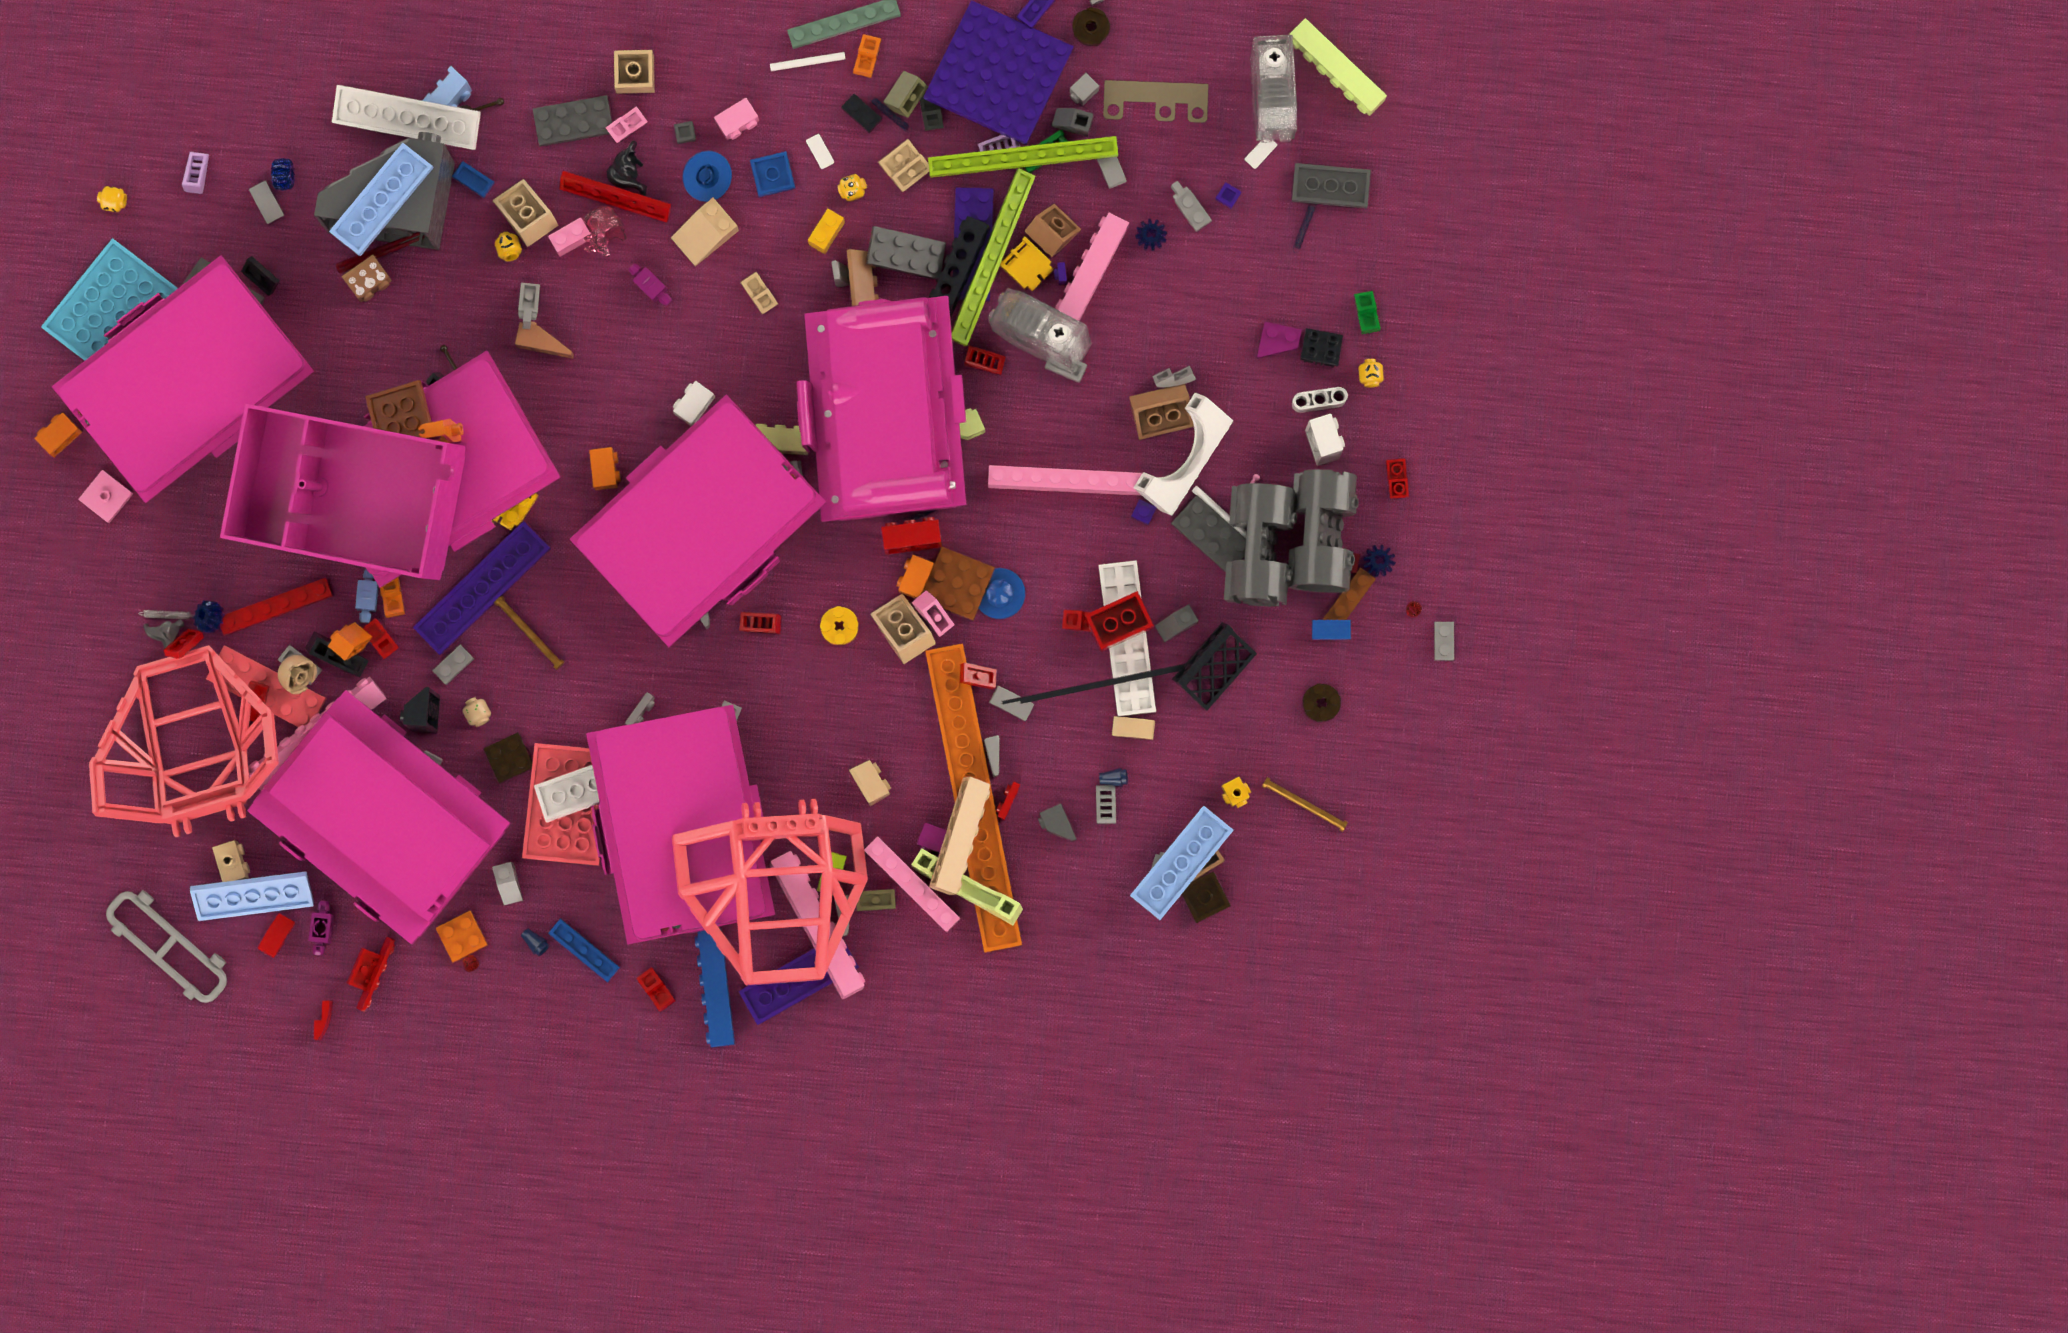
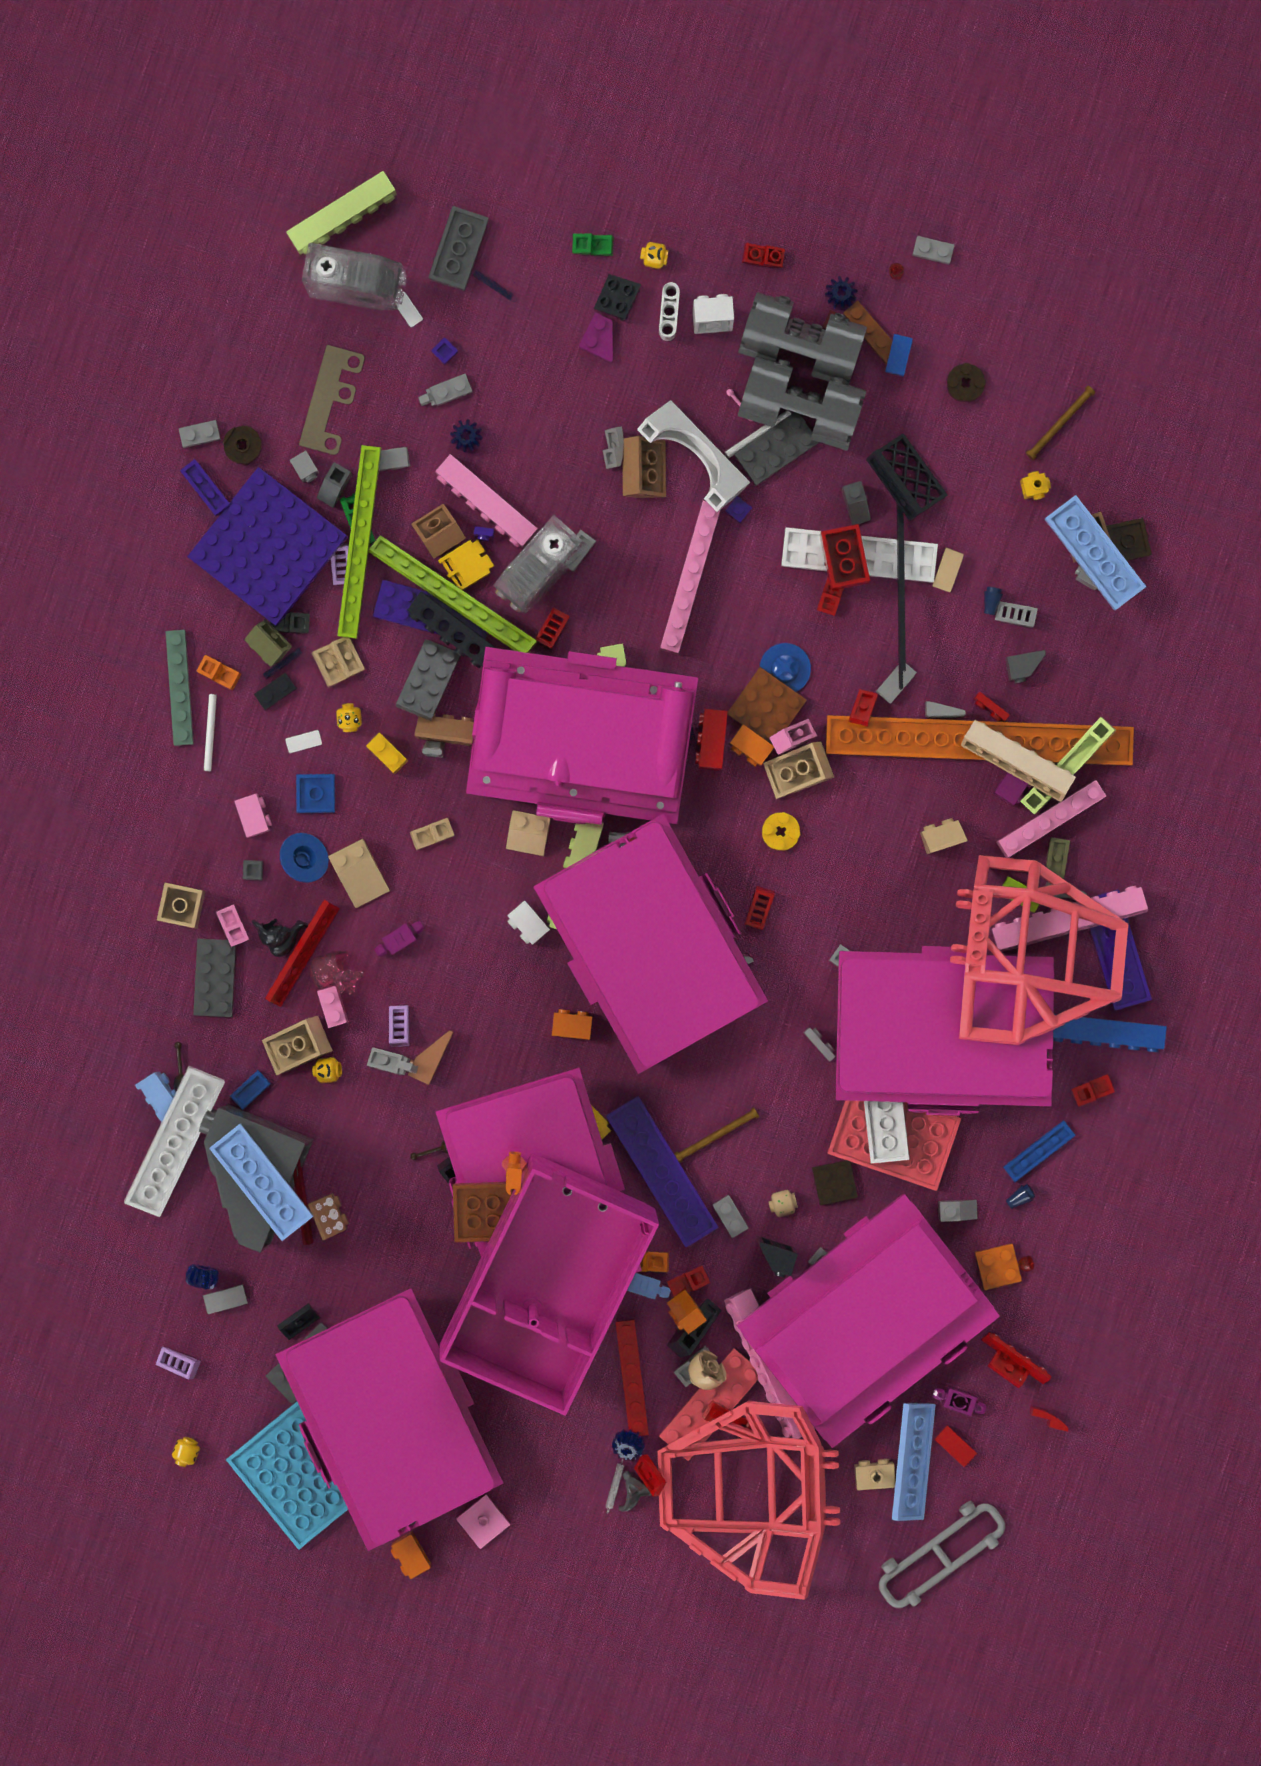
camera: 75 degrees left, 5 degrees up
(567, 311) = (399, 1042): none -> lavender slope
(780, 383) = (528, 833): none -> tan slope

